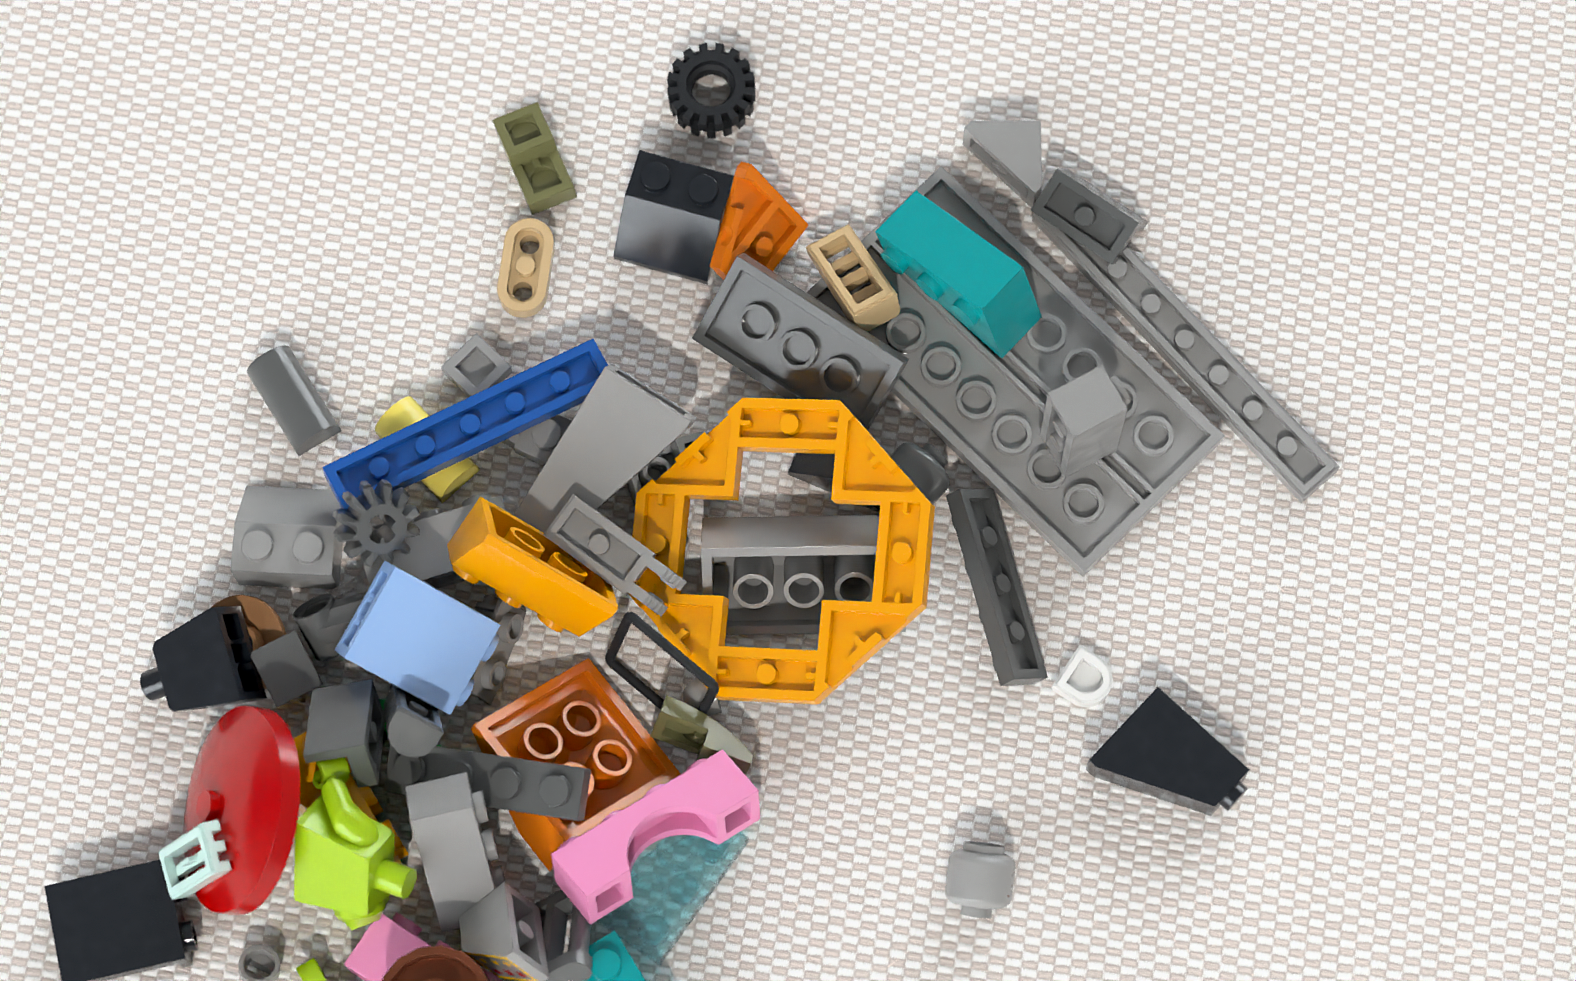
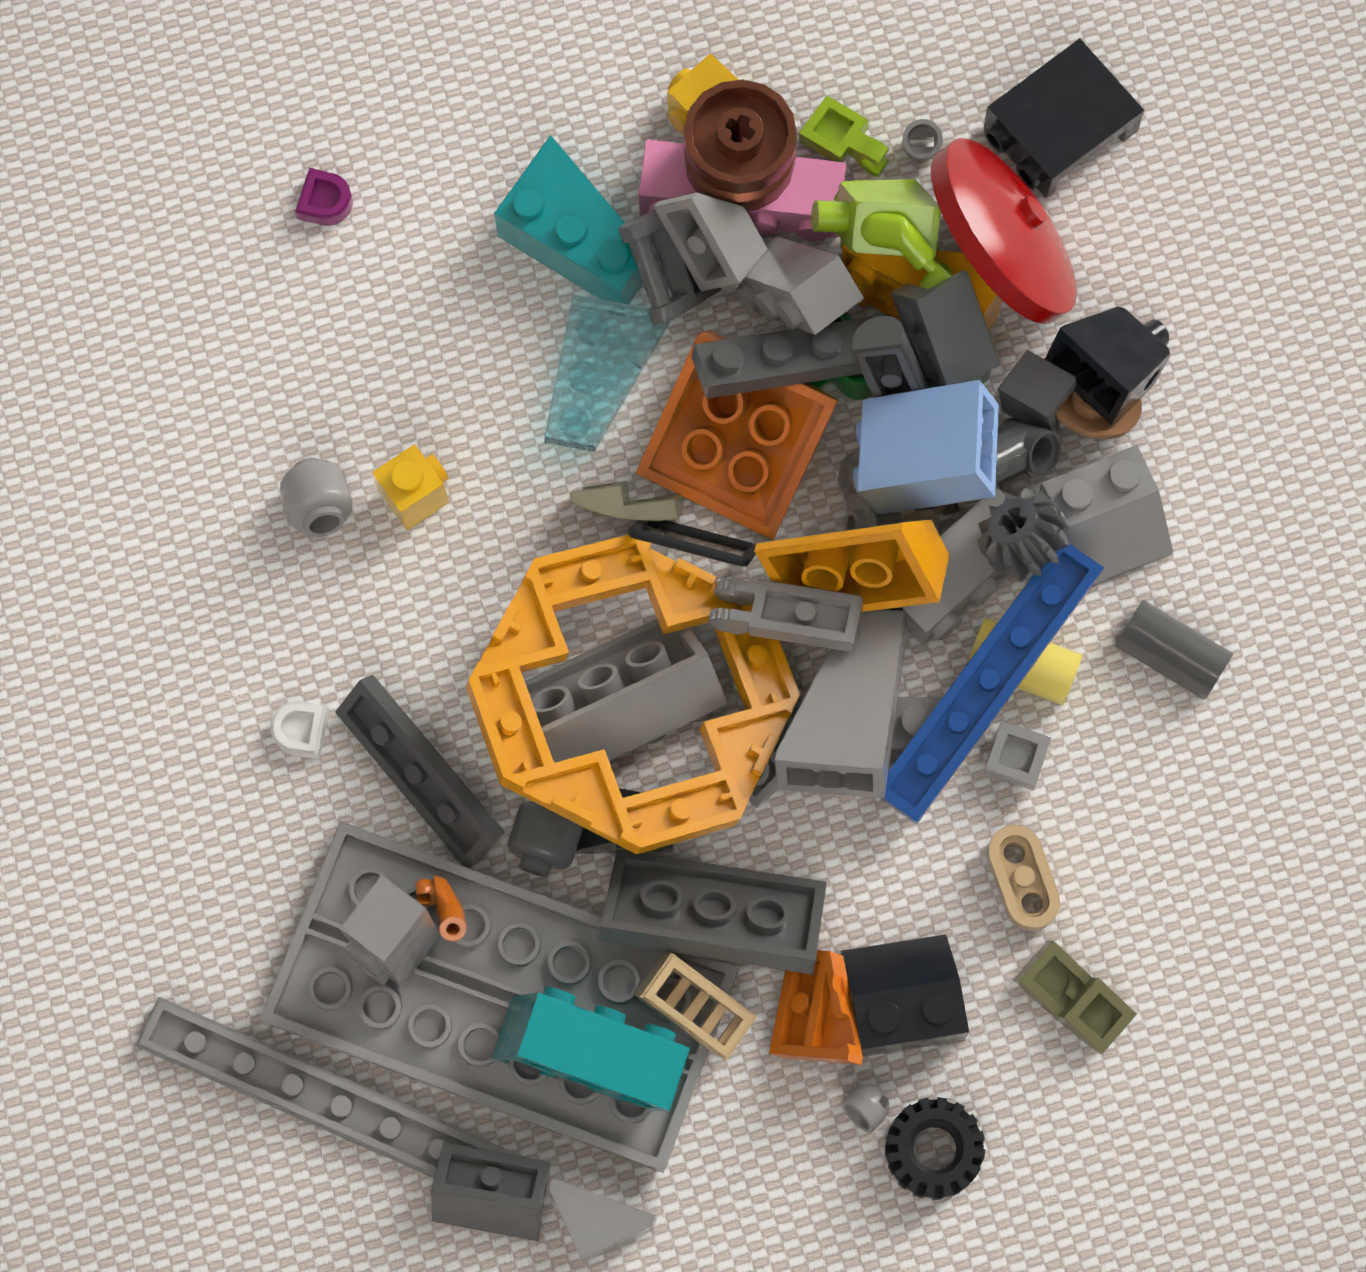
camera: 155 degrees right, 0 degrees up
(207, 855) = (1015, 163): light aqua tile -> none
(705, 802) = (657, 326): bright pink arch -> none
(748, 147) = (866, 1107): none -> light grey hinge
(888, 845) = (412, 485): none -> yellow brick
(1024, 445) = (449, 910): none -> orange arm
(1170, 758) = (186, 682): black slope -> none

